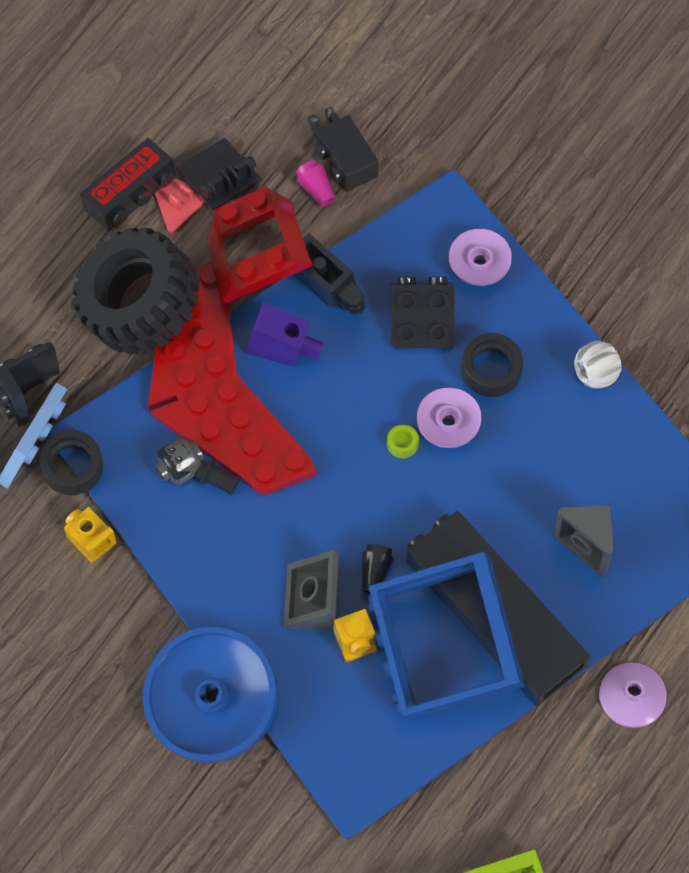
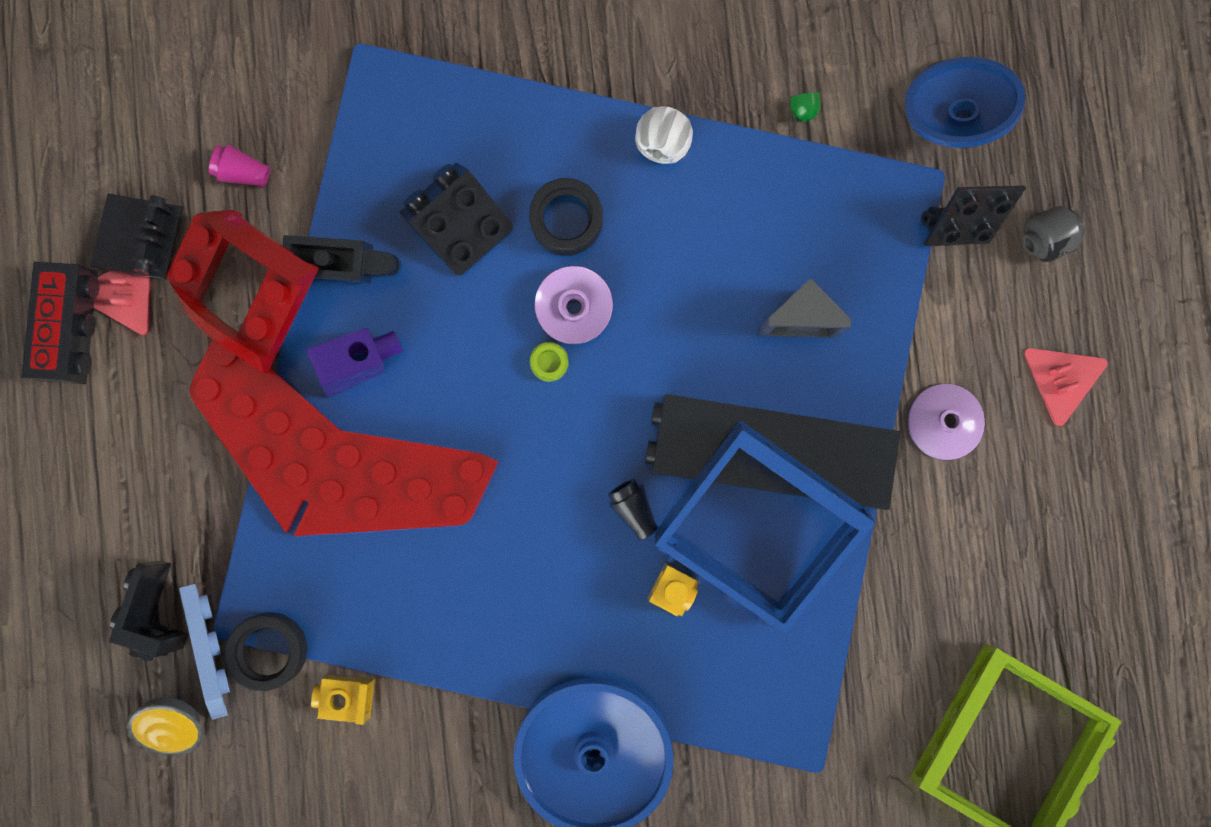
camera: 45 degrees left, 20 degrees up
(161, 308) = (129, 441): black tyre -> none
(179, 461) = (365, 562): dark grey head -> none
(217, 477) = (413, 546): black pin -> none
(312, 592) = (599, 583): dark grey slope -> none
(344, 150) = (234, 110): black hinge -> none
(480, 245) = (458, 99): lavender dish -> none

